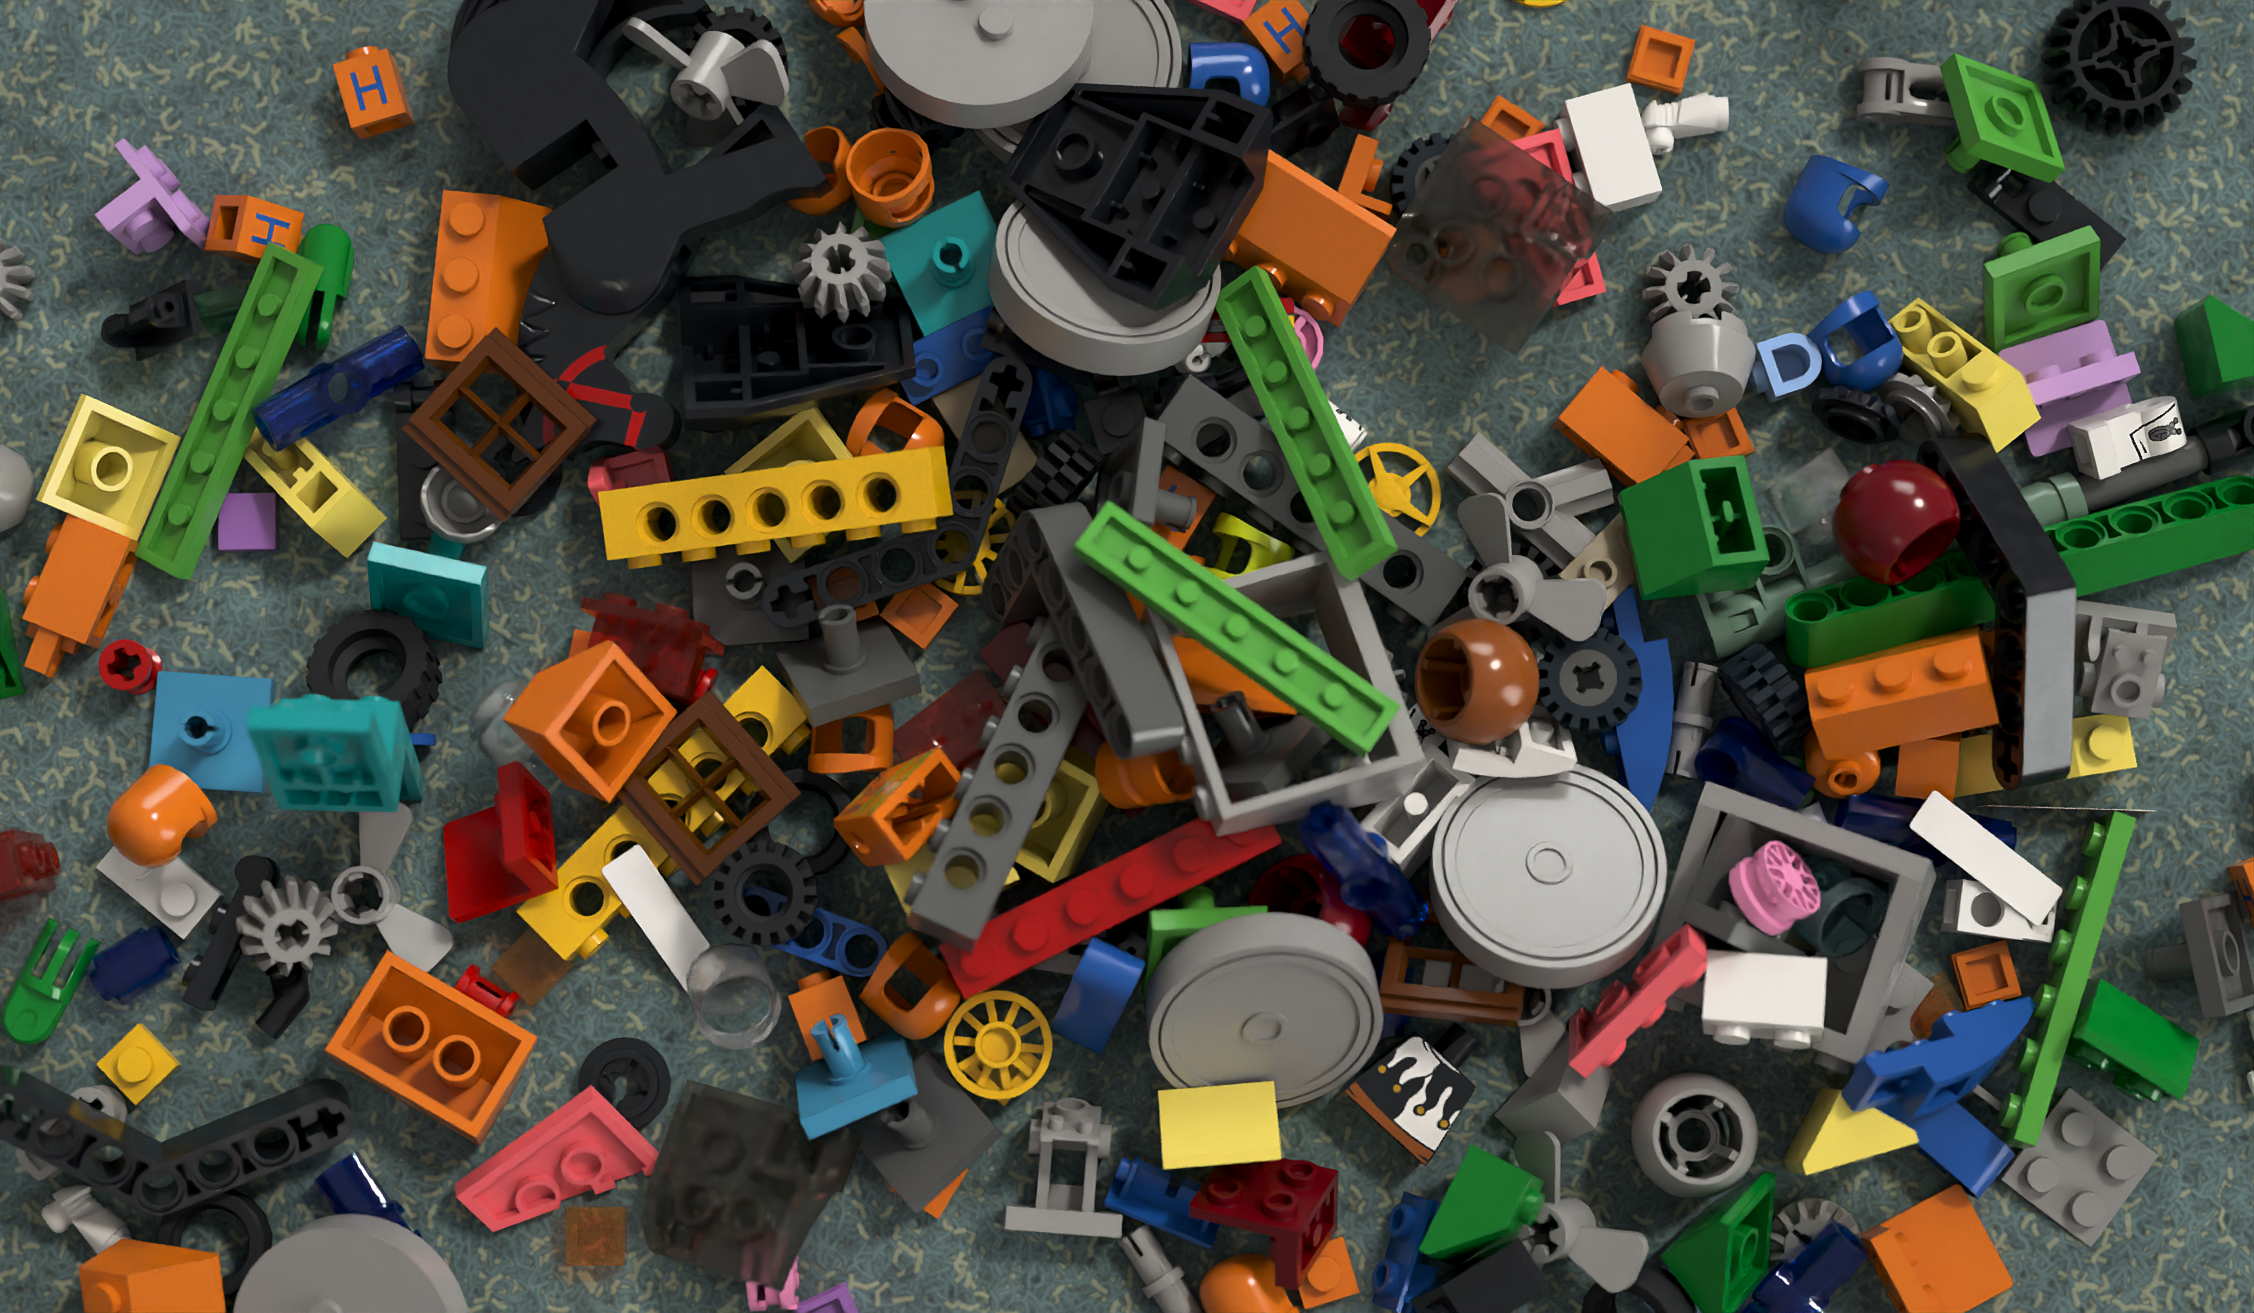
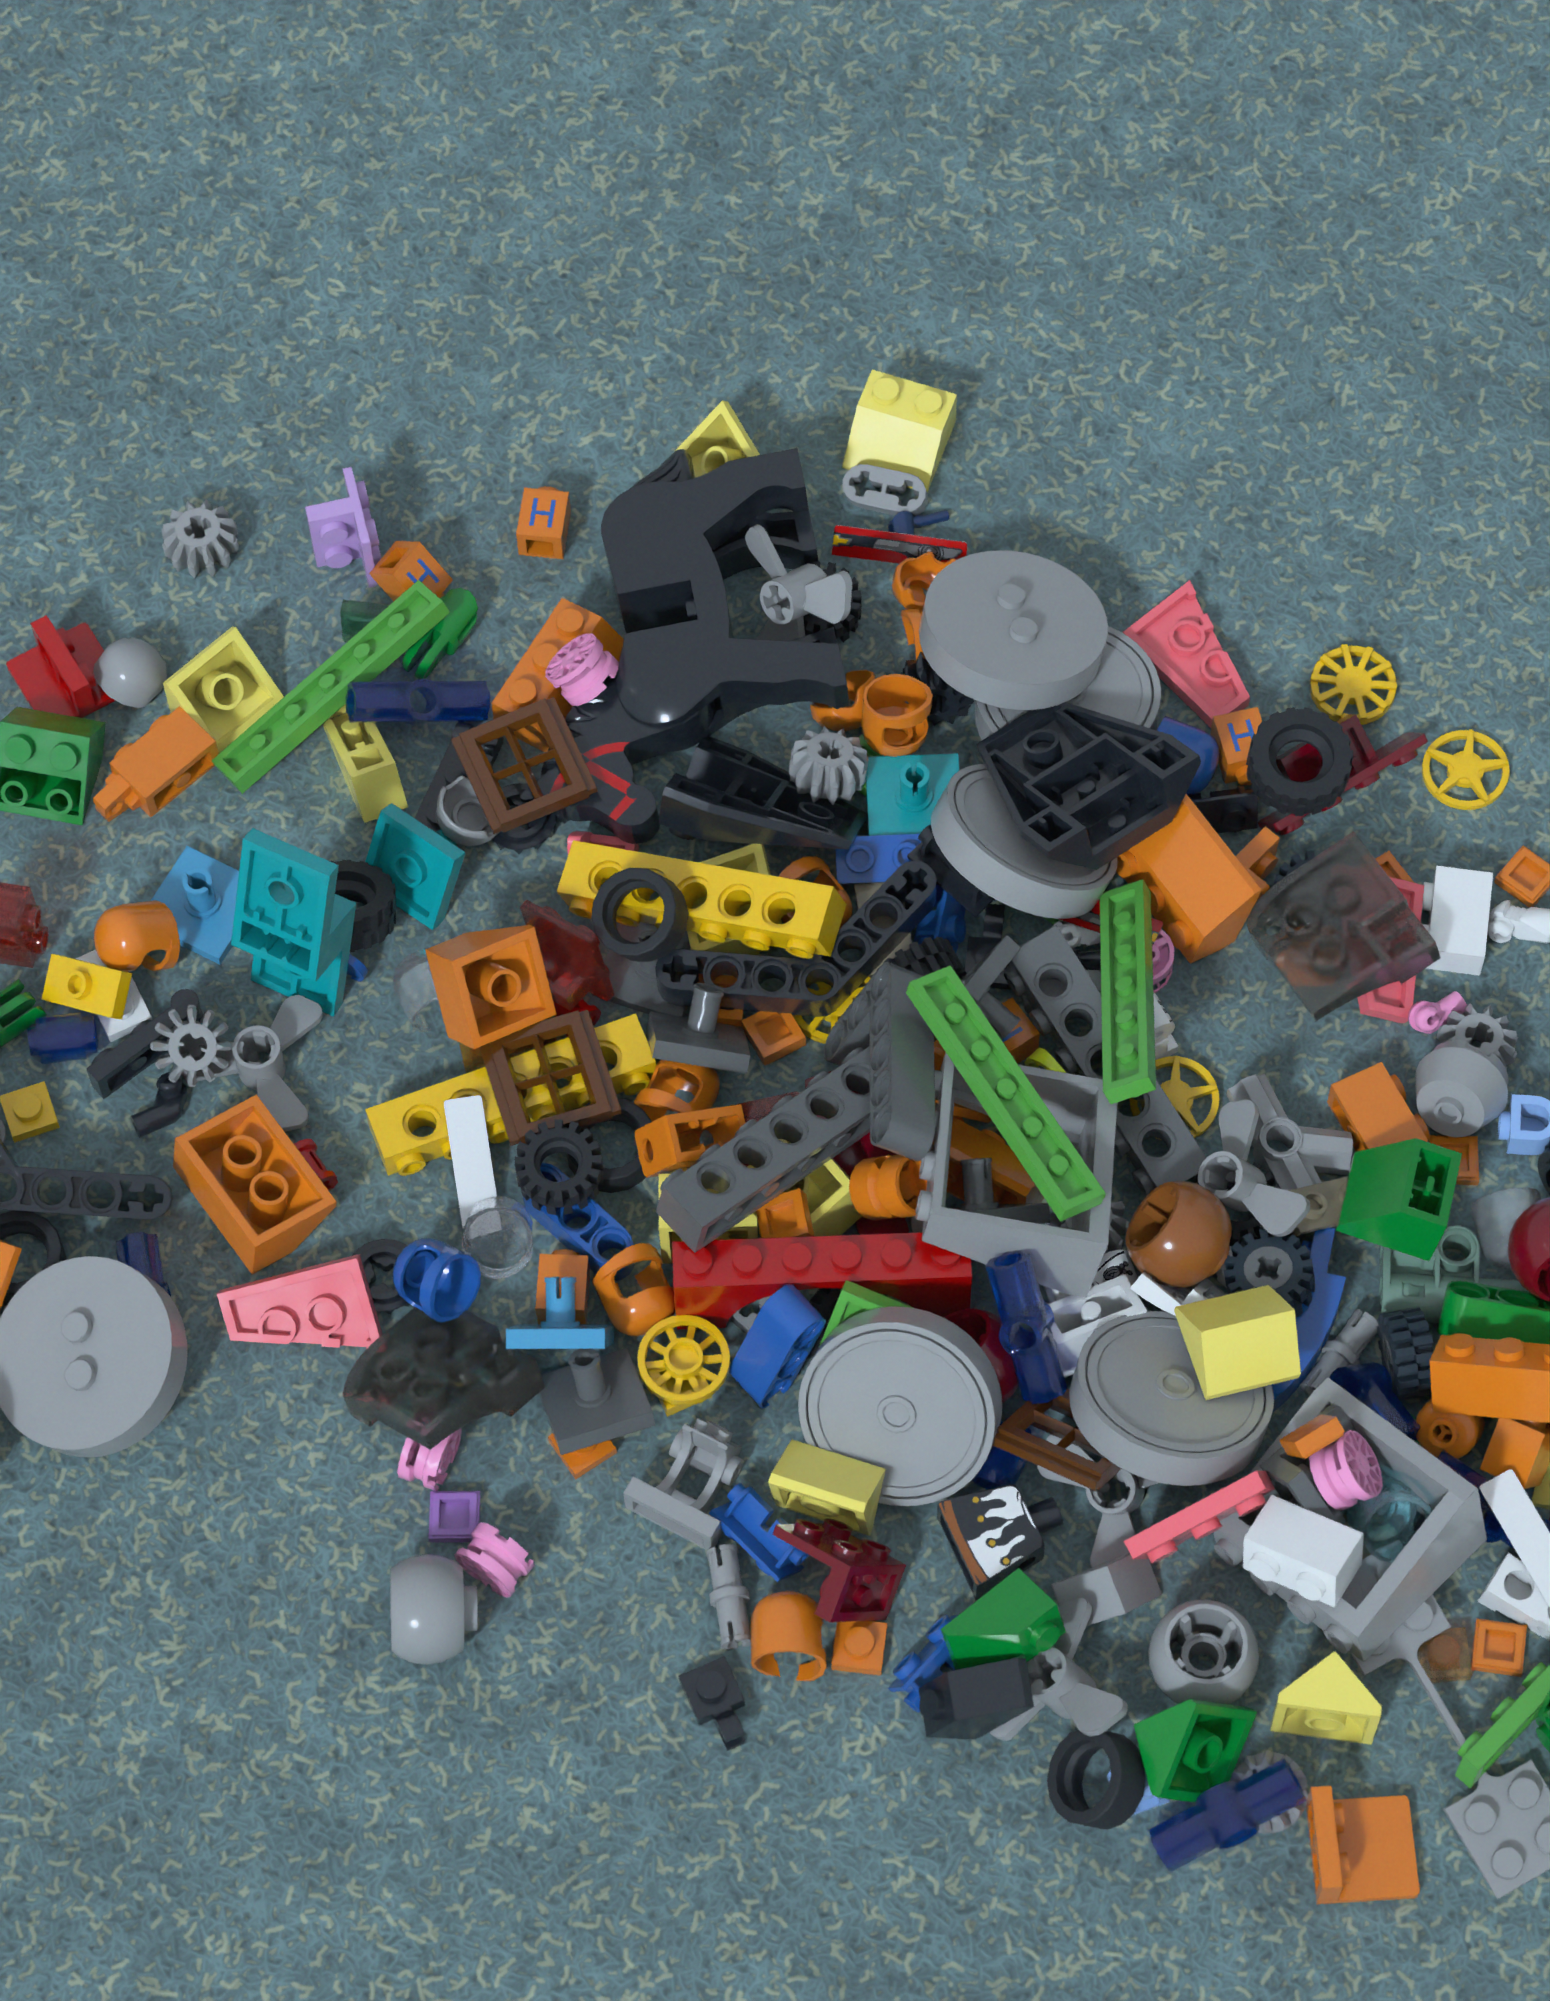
camera: 30 degrees right, 20 degrees down
(115, 658) = (158, 826): red bush -> none
(131, 897) = (86, 986): none -> yellow plate
(155, 322) = (307, 606): black hinge -> none
(249, 522) = (305, 774): medium lavender tile -> none
(502, 850) = (379, 1067): red bracket -> none
(513, 281) = (582, 669): none -> bright pink wheel
(532, 967) = (357, 1162): clear orange plate -> none
(596, 1236) = (307, 1375): clear orange plate -> none
(689, 591) = (609, 899): none -> black tyre
(689, 1078) = (436, 1278): none -> blue helmet
(1047, 856) = (786, 1216): none -> orange plate
(1598, 783) = (1240, 1341): none -> light yellow slope
(1623, 281) = (1429, 1016): none -> bright pink arm
(1728, 872) = (1312, 1436): none -> orange tile
(1944, 1066) = (1425, 1676): blue slope -> none
(1956, 1144) = (1410, 1741): blue beam -> none

